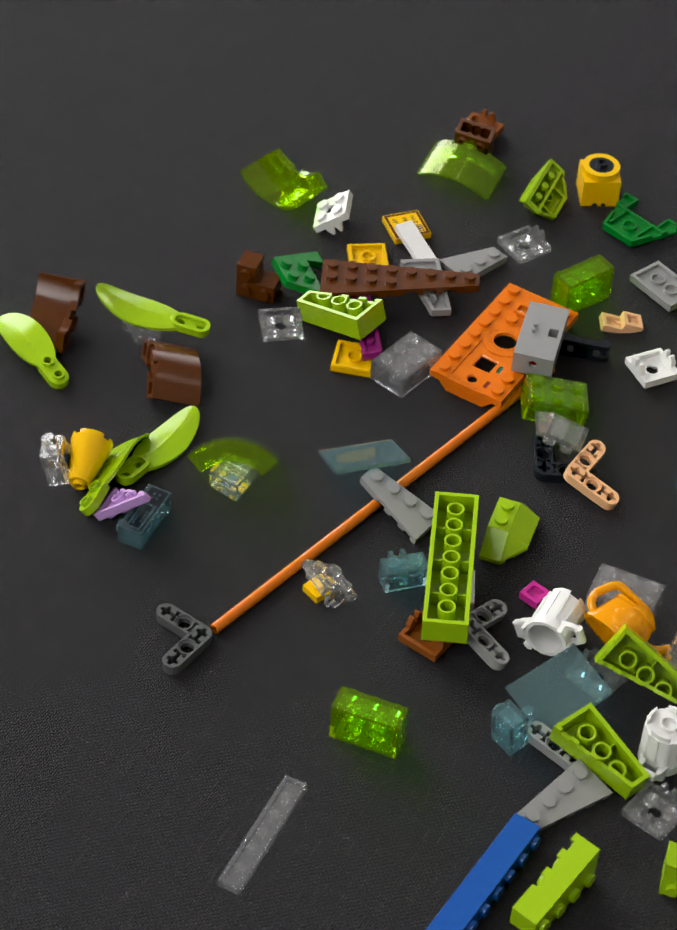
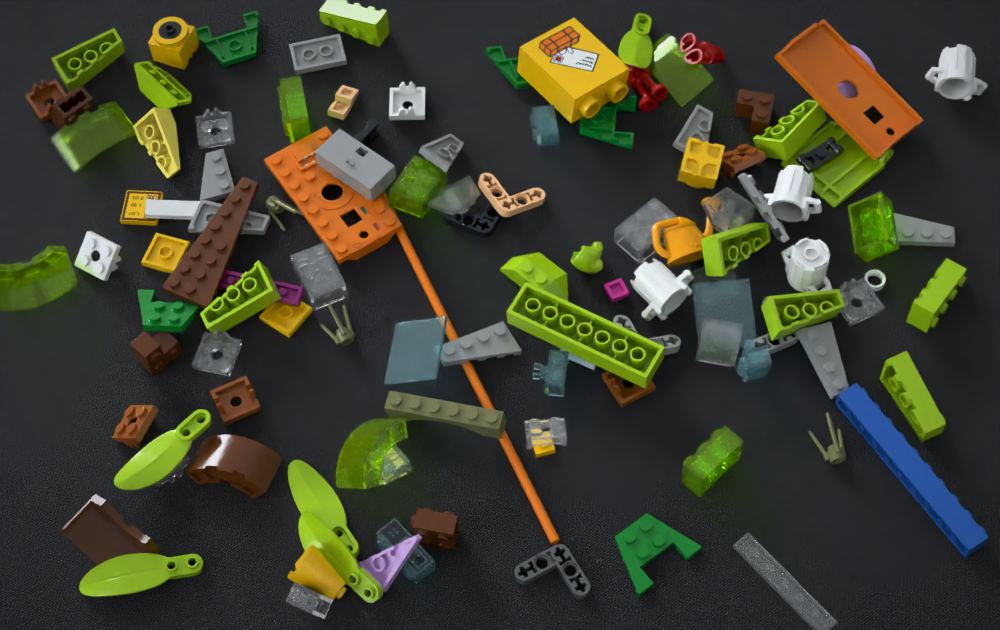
camera: 60 degrees left, 15 degrees up
(174, 526) = (436, 528): none -> reddish brown brick
(184, 290) = (133, 433): none -> dark orange piece
(238, 342) = (238, 388): none -> dark orange piece
(248, 700) = (646, 541): none -> green wing
(306, 500) = (477, 419): none -> olive arch
(353, 402) = (344, 335): none -> olive plant
(446, 836) = (835, 452): none -> olive plant
(466, 313) = (277, 206): none -> olive plant
(491, 207) = (159, 135): none -> light yellow wedge
(522, 686) = (719, 342): none -> clear slope
(539, 135) = (88, 59): none -> lime wedge
(555, 558) = (588, 258): none -> lime hair
(606, 404) = (442, 151): none -> light grey wing

